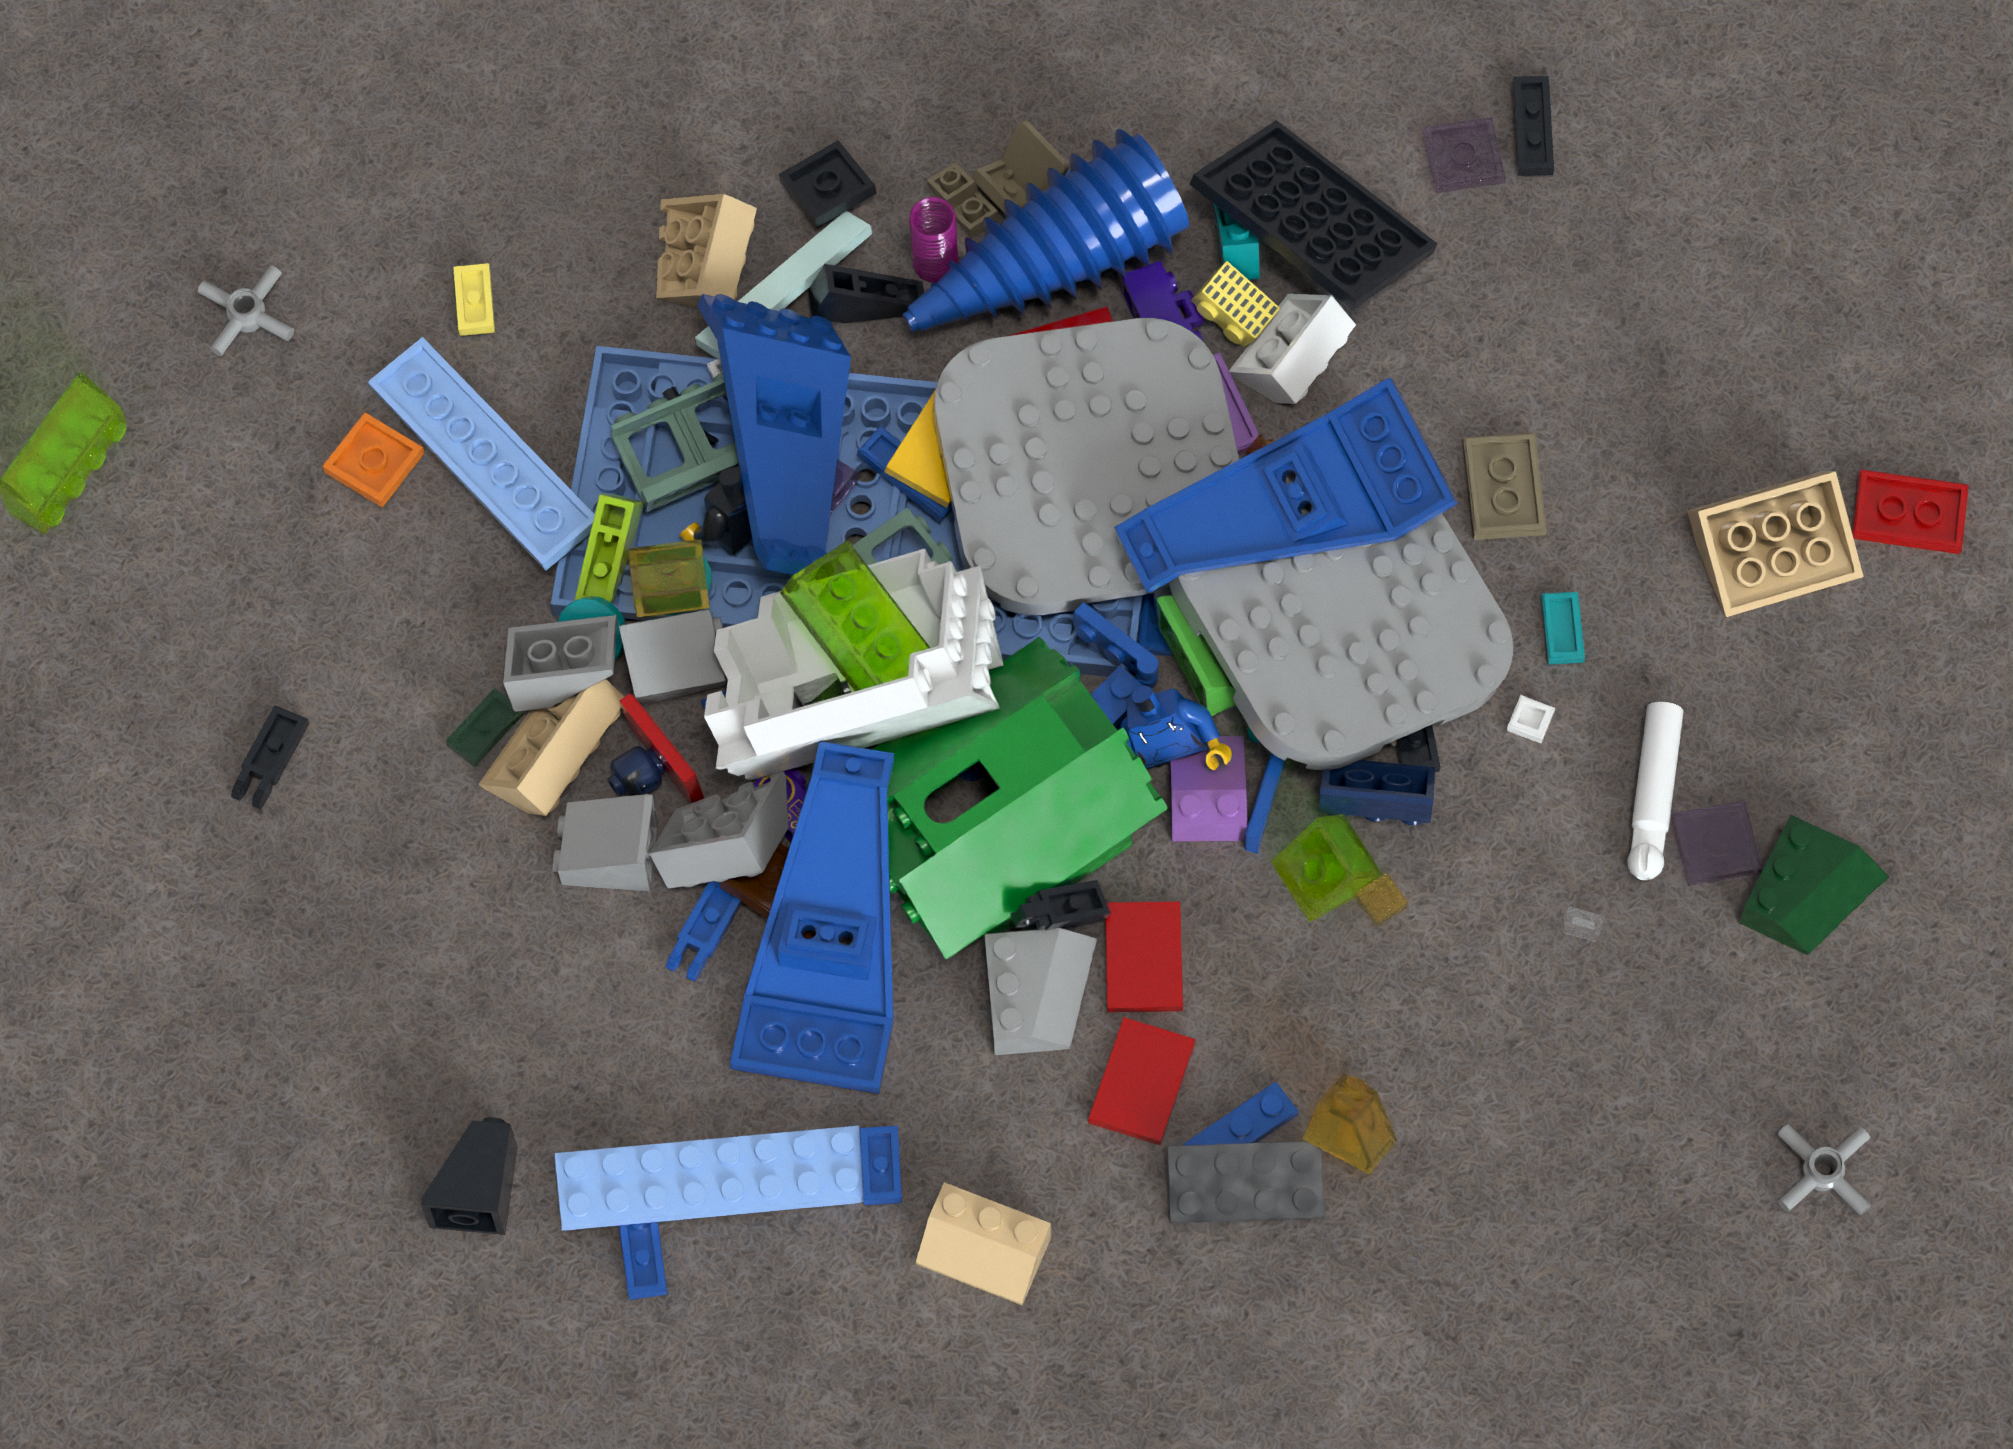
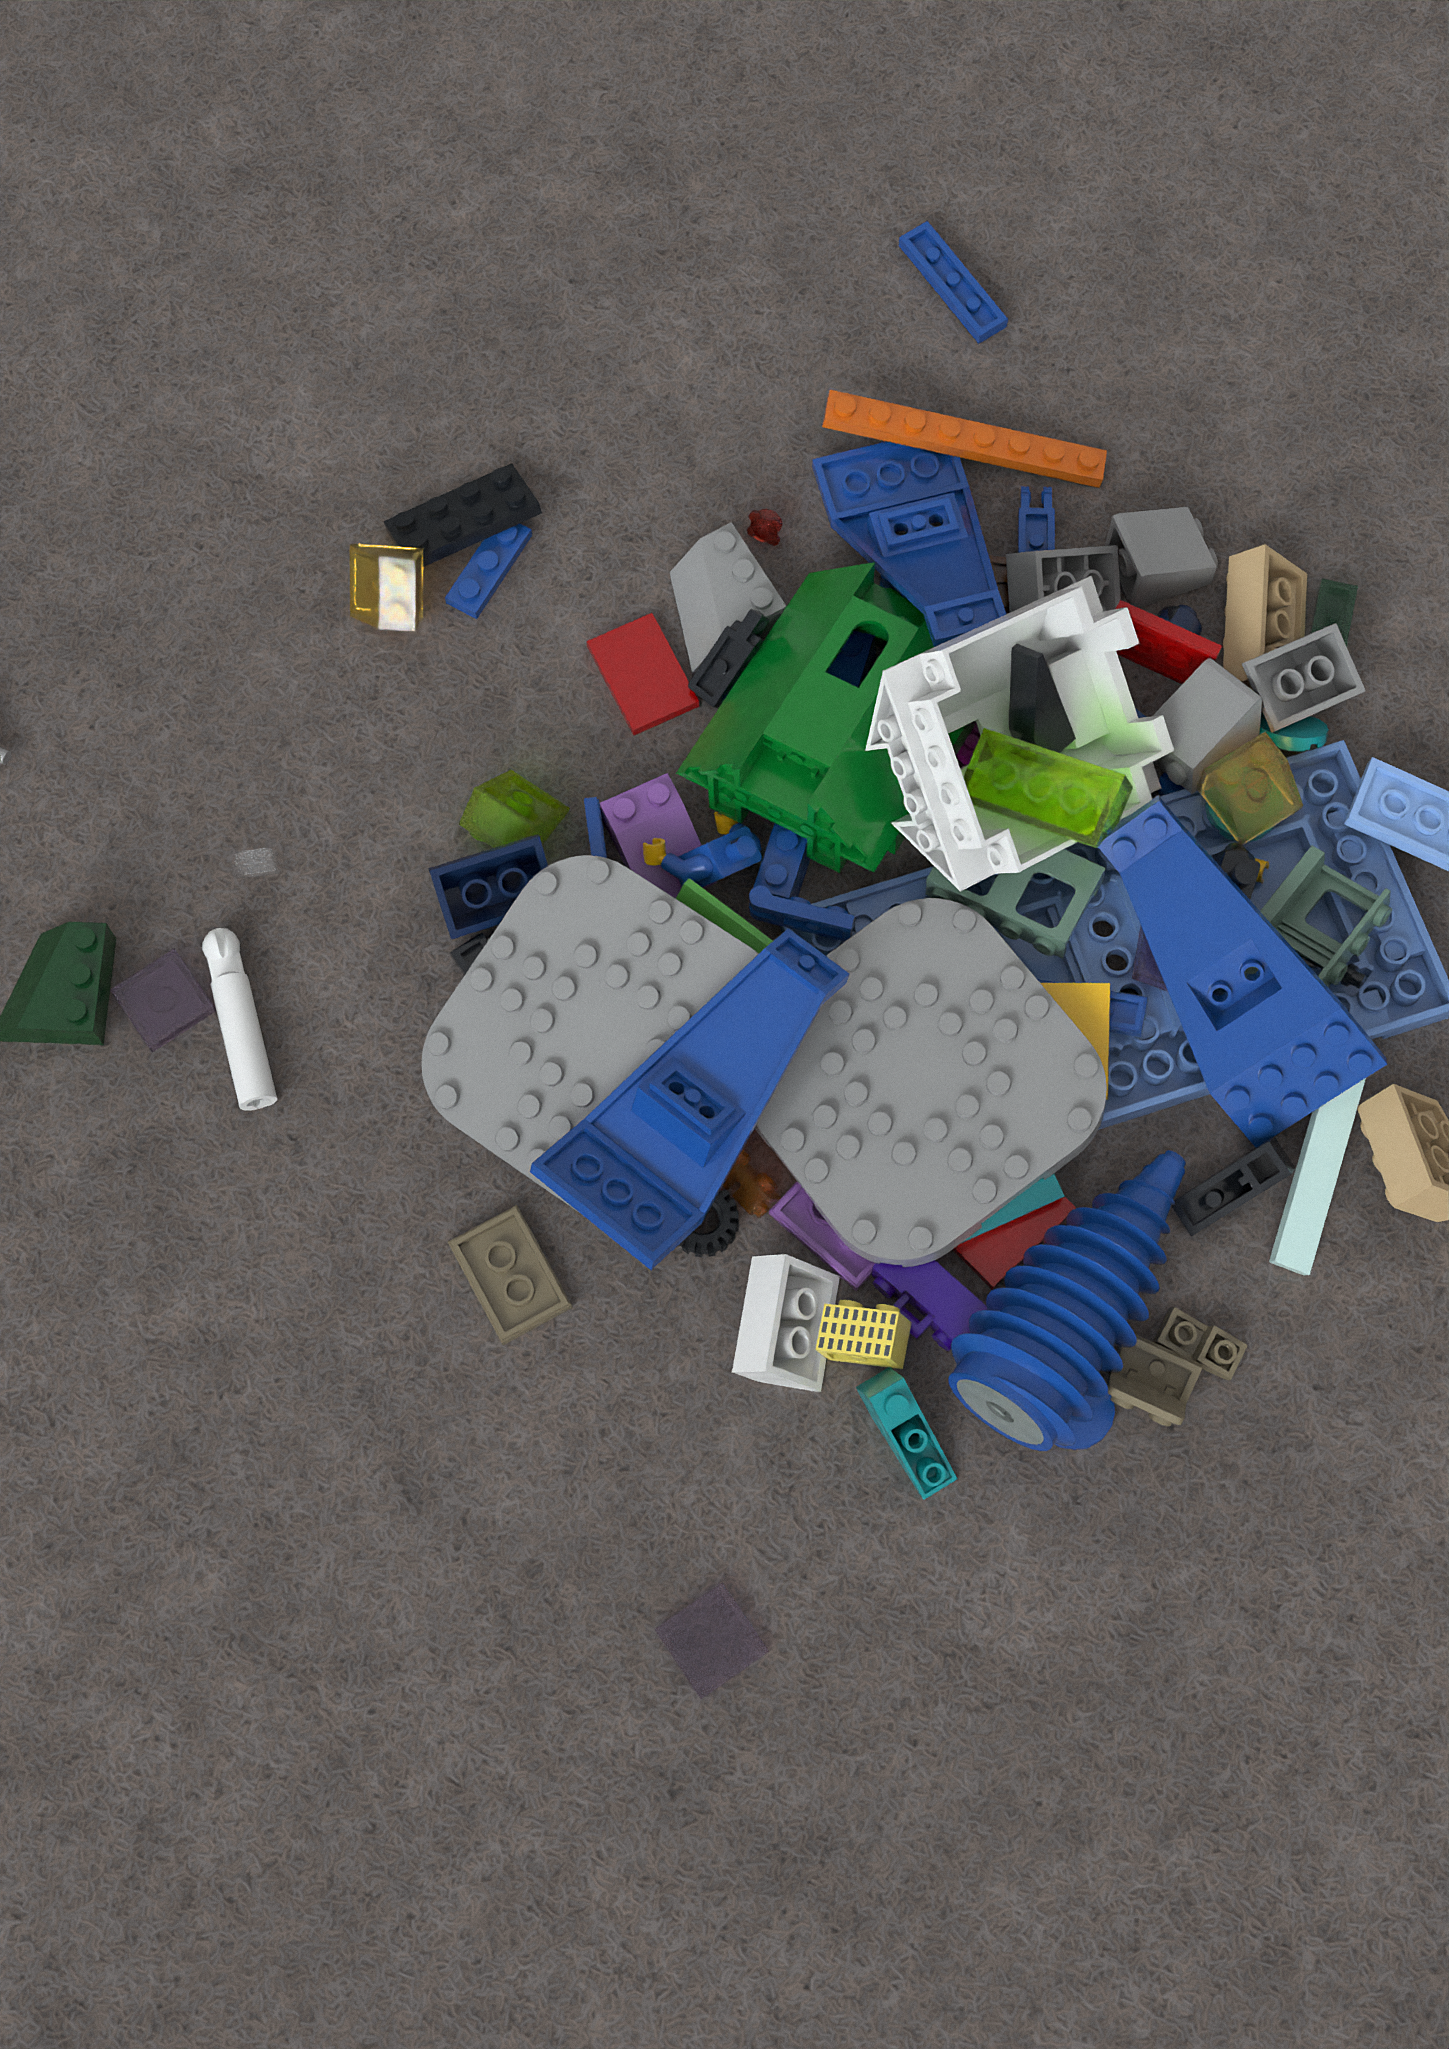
camera: 155 degrees right, 5 degrees up
(475, 1181) = (1096, 238): black slope -> none
(608, 546) = (1326, 808): lime slope -> none
(709, 1177) = (916, 328): light blue plate -> none
(725, 1039) = (964, 438): none -> orange plate
(827, 183) = (1343, 1291): black plate -> none
(880, 1165) = (778, 406): blue plate -> none
(944, 238) = (1204, 1229): magenta piece -> none
(957, 1044) = (765, 526): none -> clear red plate
(983, 1243) = (659, 385): tan slope -> none
(1142, 1081) = (593, 570): red tile -> none
(1313, 214) = (831, 1469): black plate -> none
(1381, 899) = (448, 808): clear yellow plate -> none
(1530, 719) = (385, 1045): white tile -> none
(1533, 125) = (651, 1708): black plate -> none
(1562, 628) = (392, 1150): teal tile -> none
(1776, 542) = (213, 1329): tan slope -> none
(1910, 511) = (89, 1430): red tile -> none

